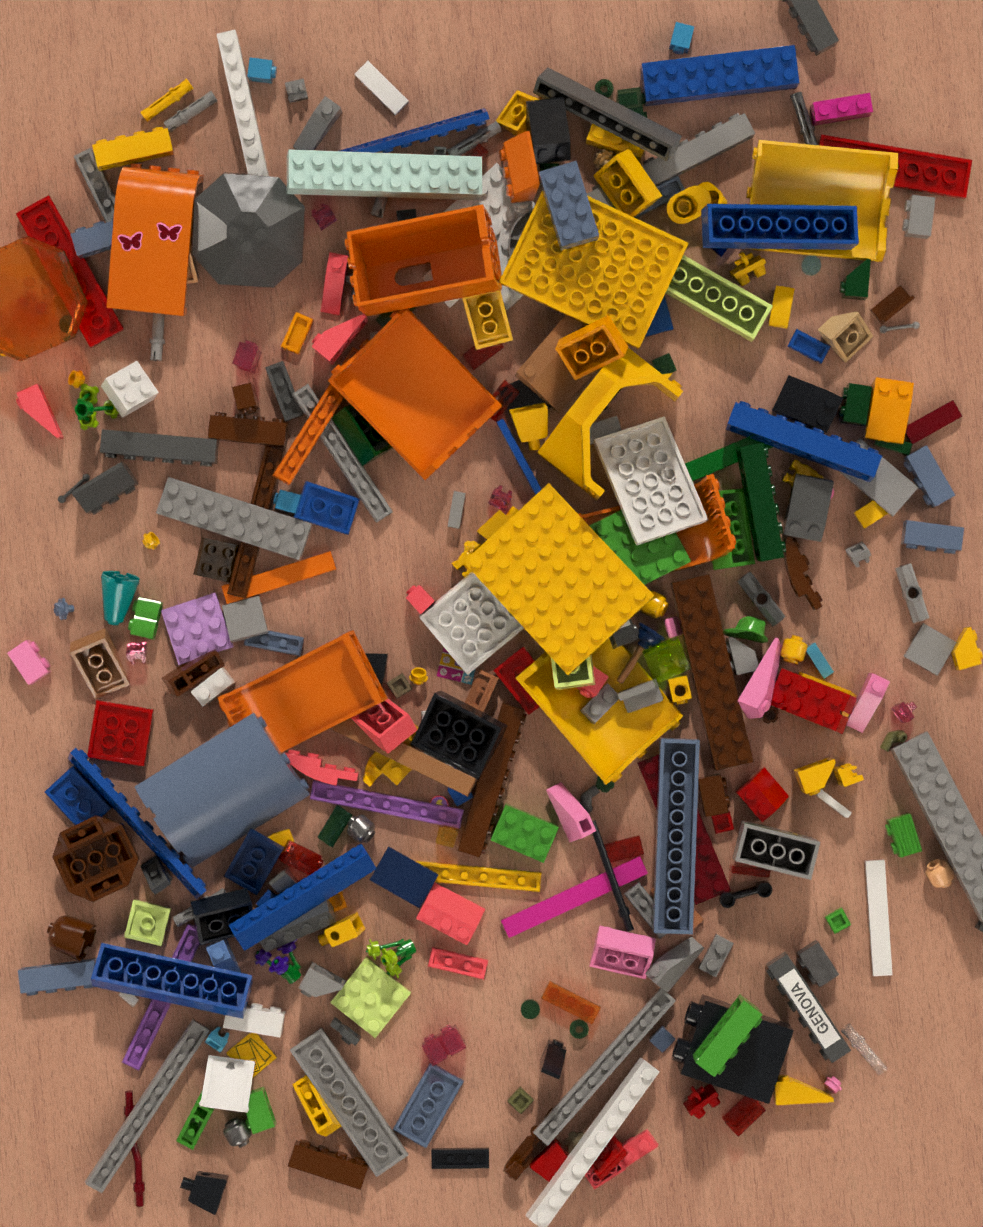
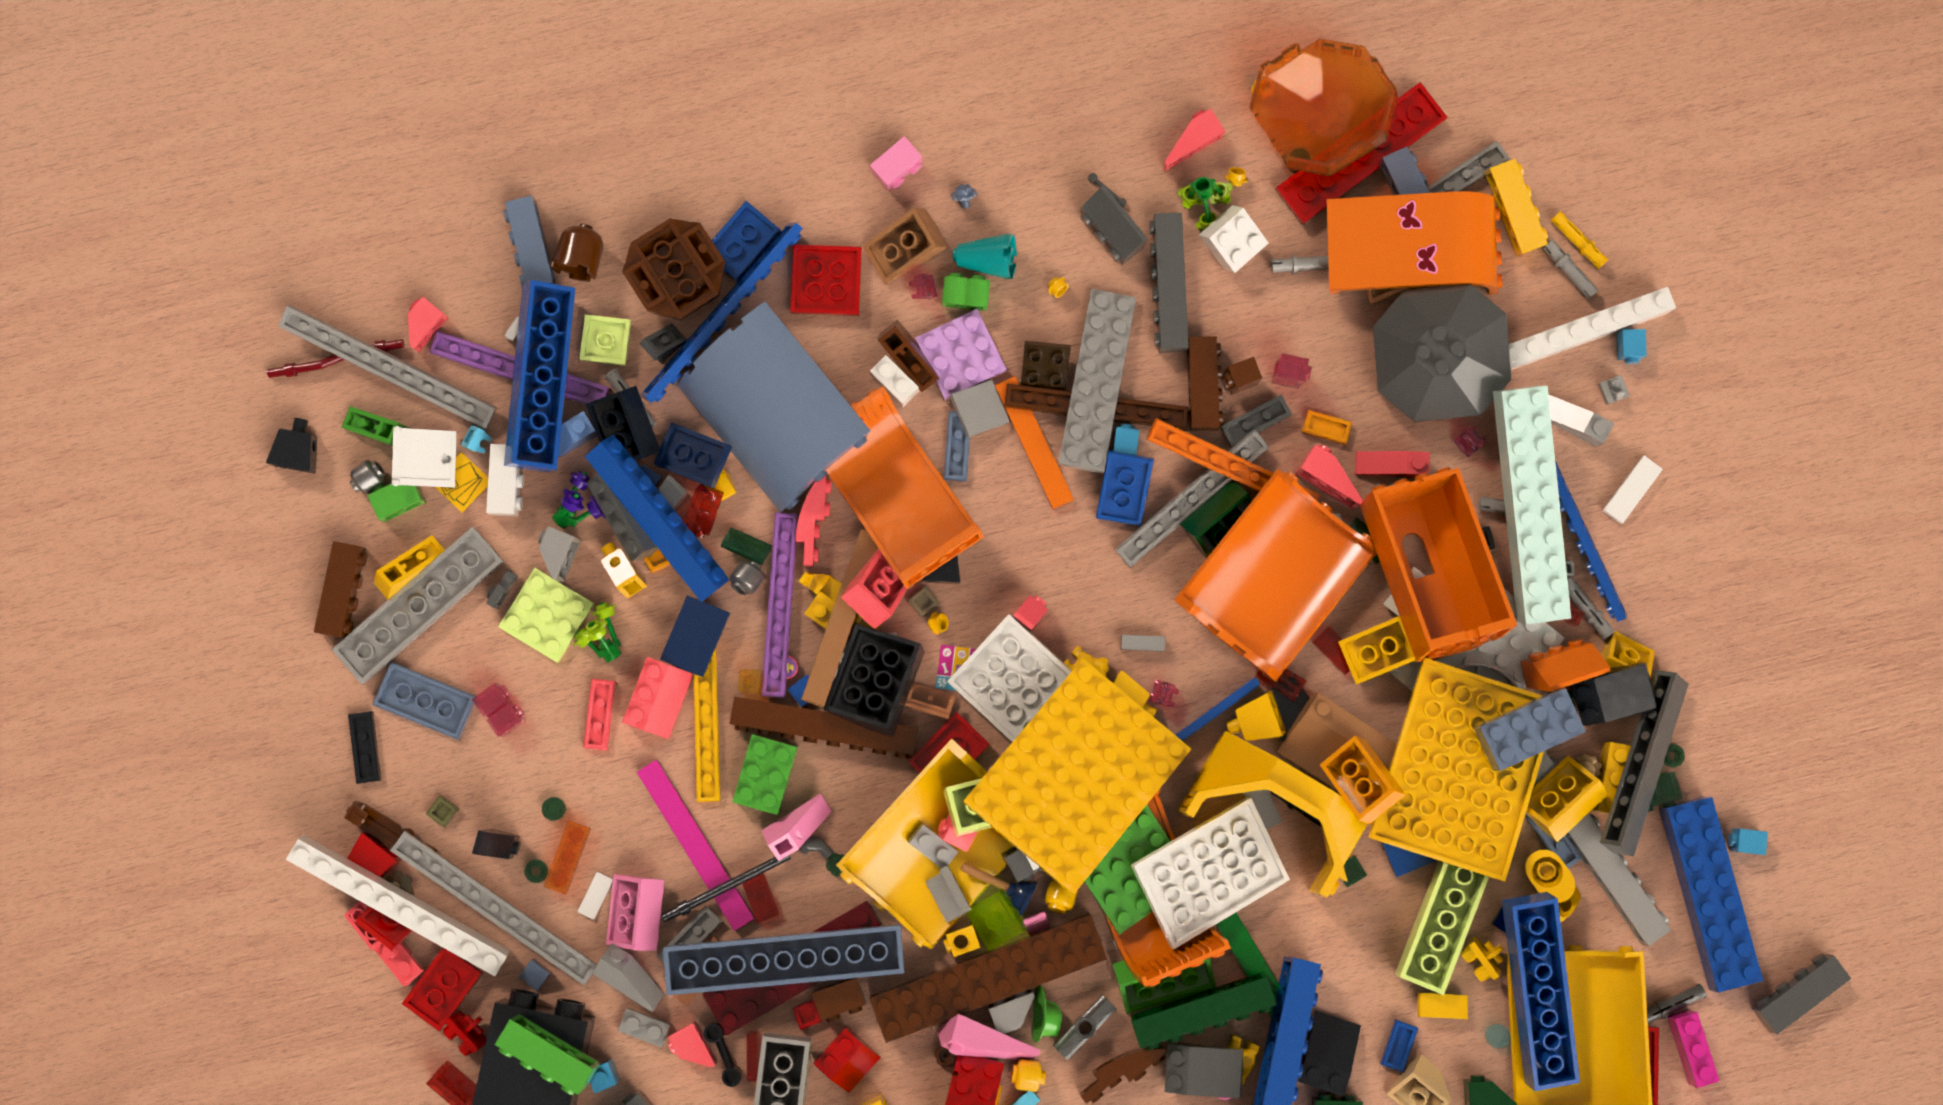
camera: 85 degrees right, 5 degrees down
(113, 1072) = (423, 322): none -> coral slope
(605, 983) = (595, 895): none -> white sticker
(663, 1115) = (442, 988): none -> red plate
(735, 918) = (691, 1045): none -> coral slope
(751, 991) = (604, 1076): none -> dark azure brick

